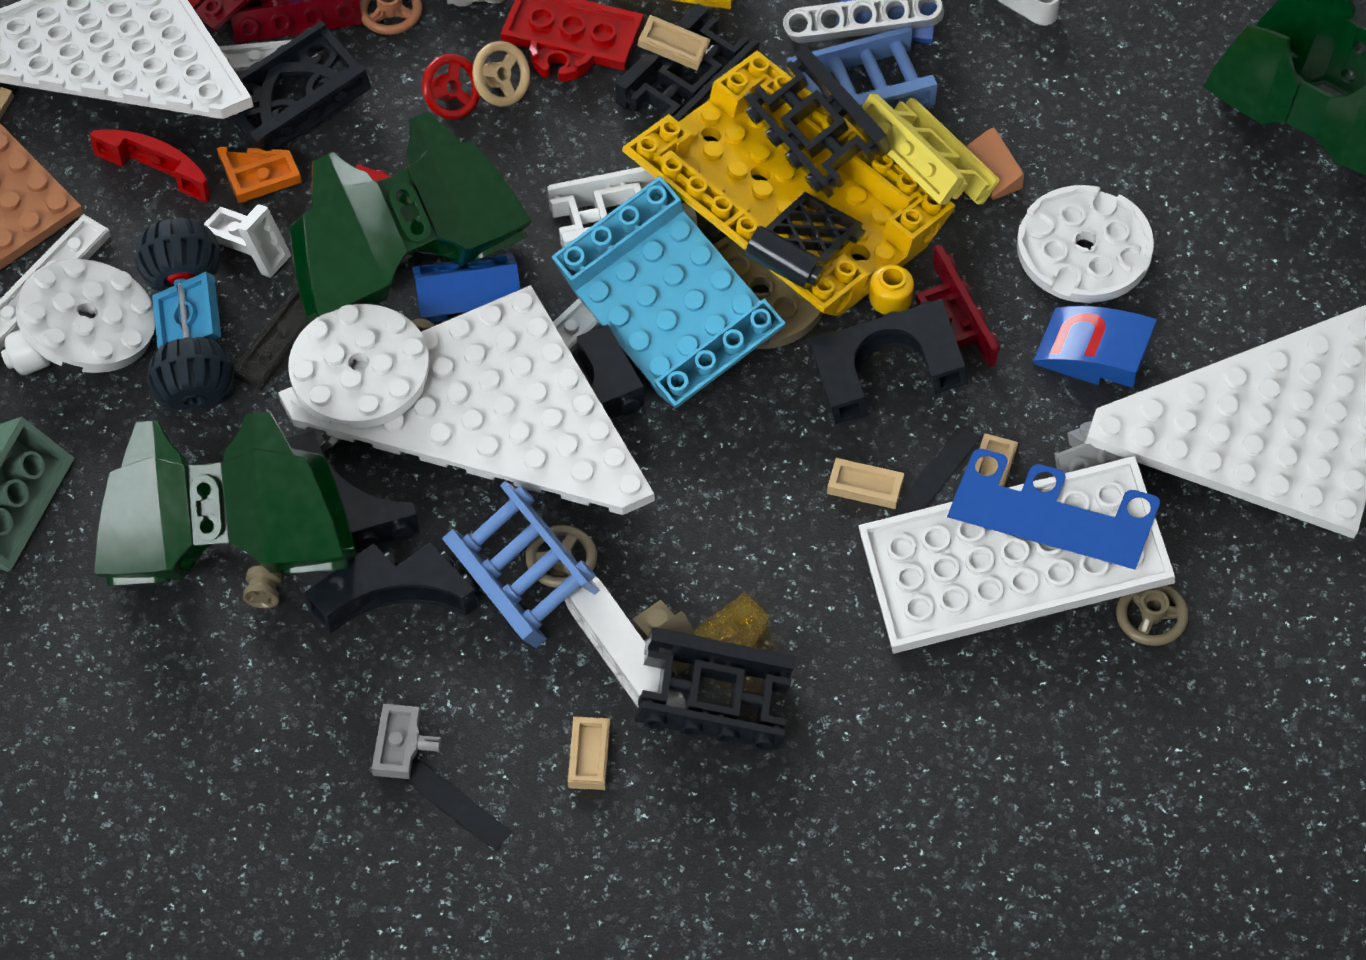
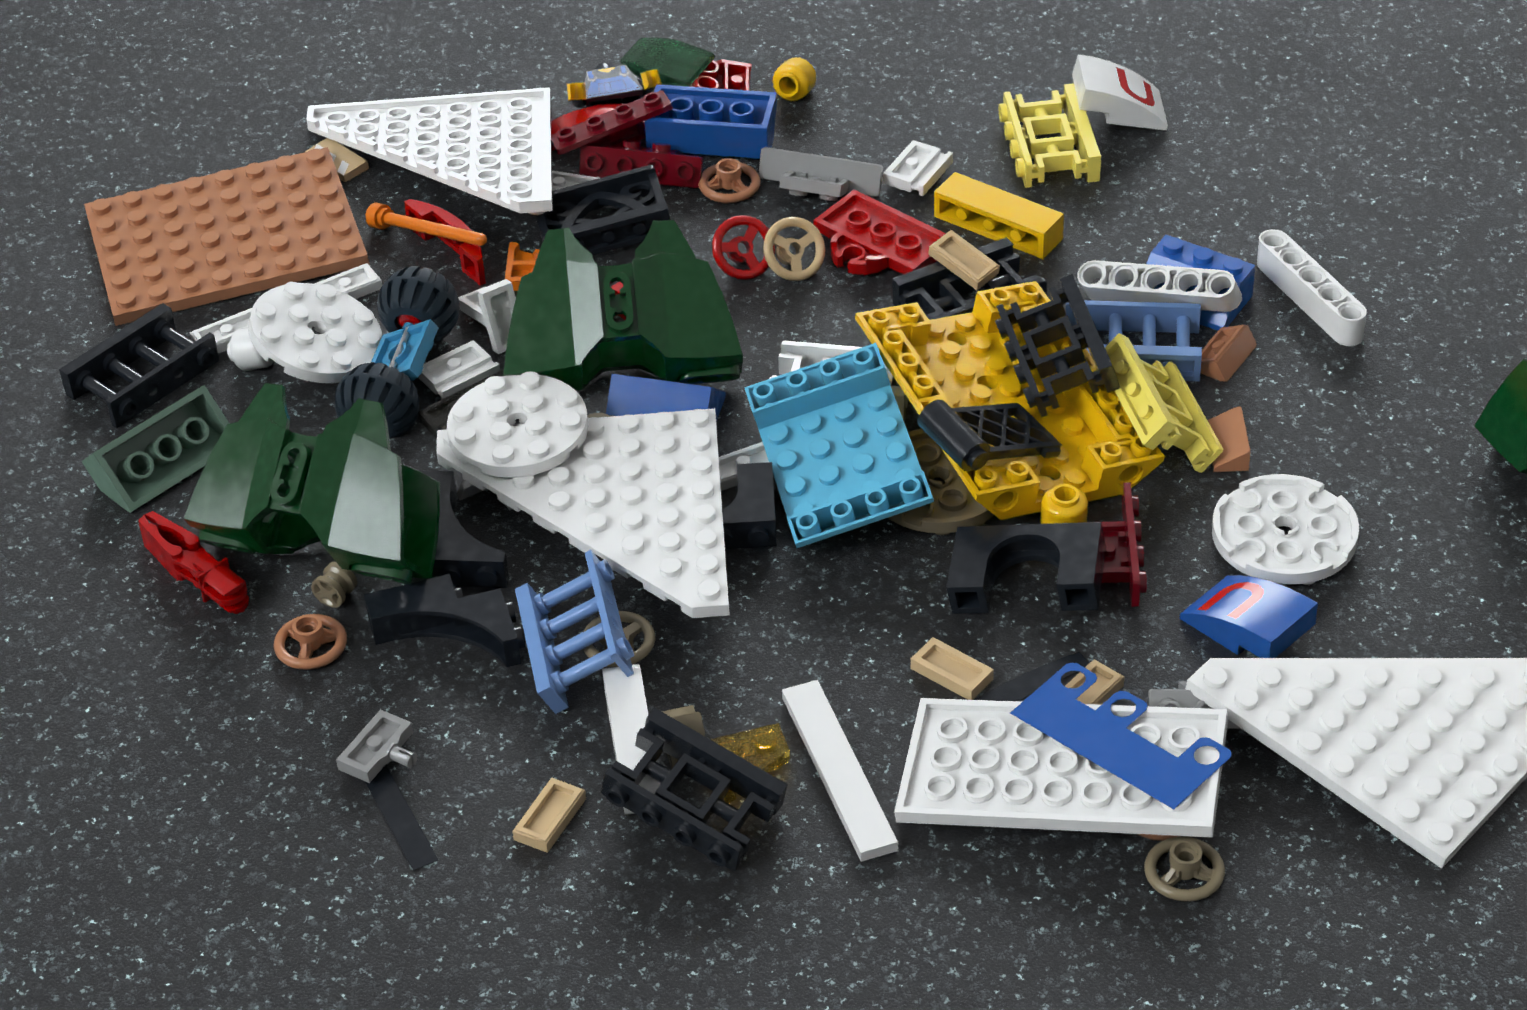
camera: 25 degrees right, 15 degrees down
(67, 155) = (382, 216): none -> orange piece
(101, 606) = (185, 558): none -> red arm
(248, 310) = (458, 369): none -> white plate
(266, 636) = (310, 634): none -> nougat piece
(819, 619) = (840, 771): none -> white tile
(947, 63) = (1227, 352): none -> nougat slope

